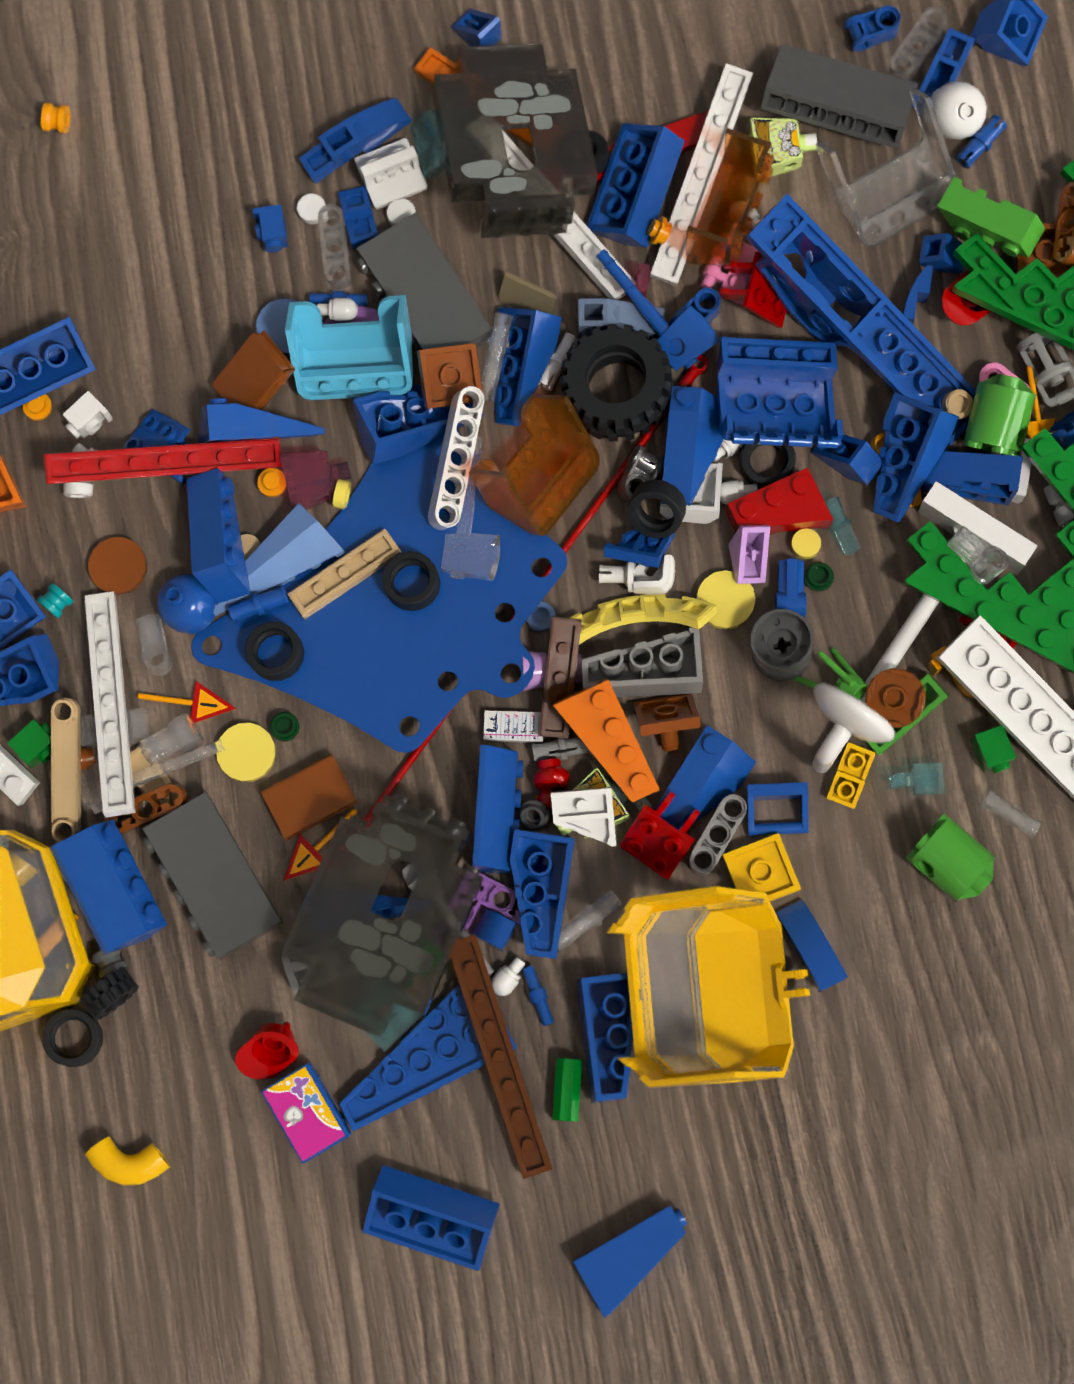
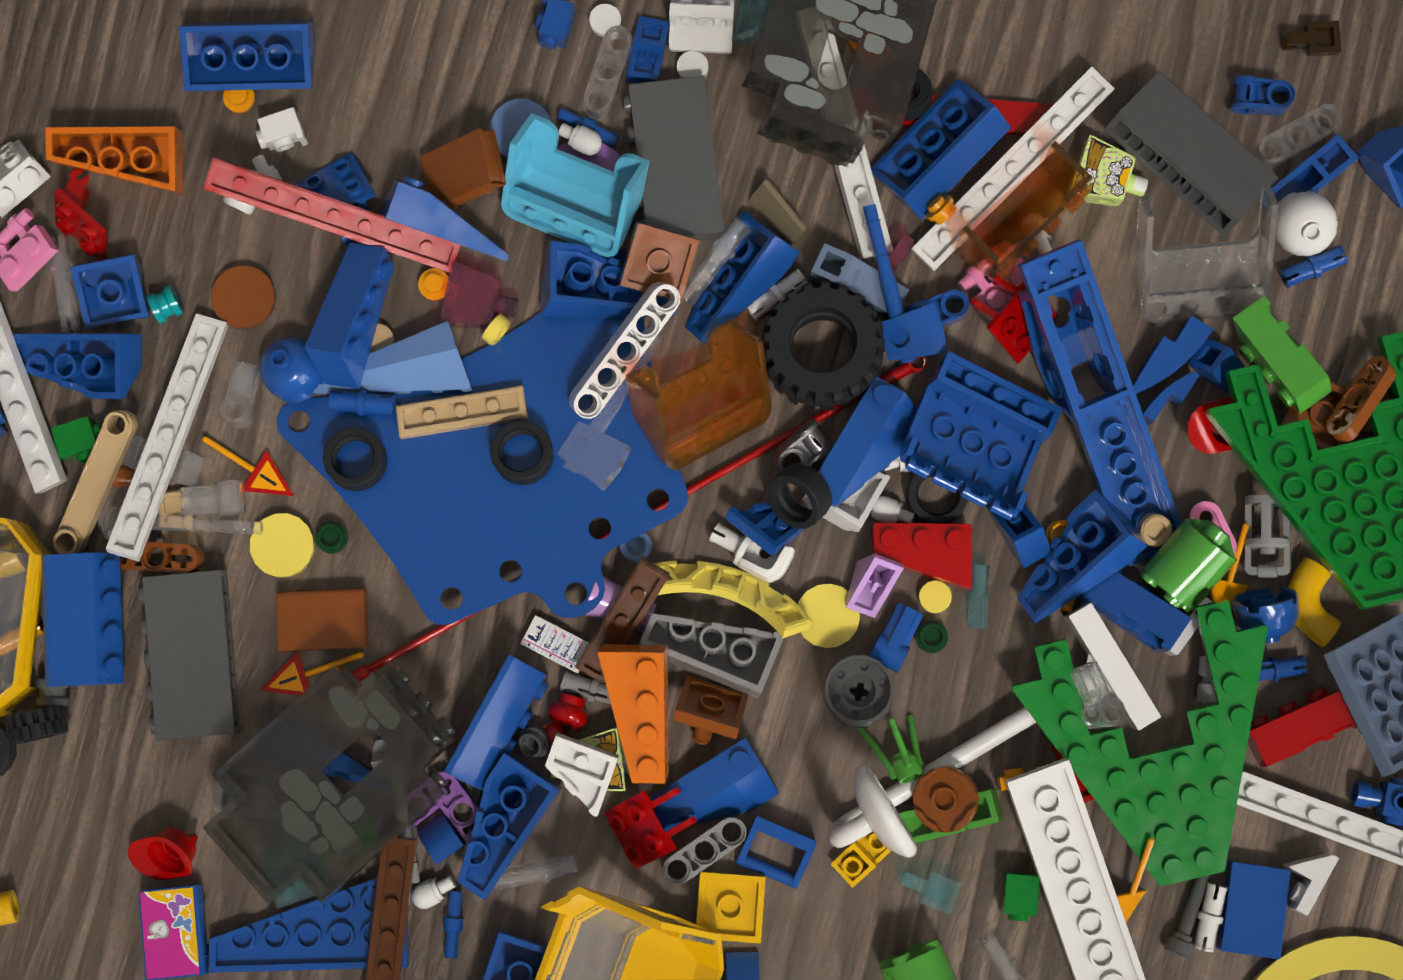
camera: 20 degrees right, 5 degrees up
(902, 261) = (1171, 355): none -> blue slope

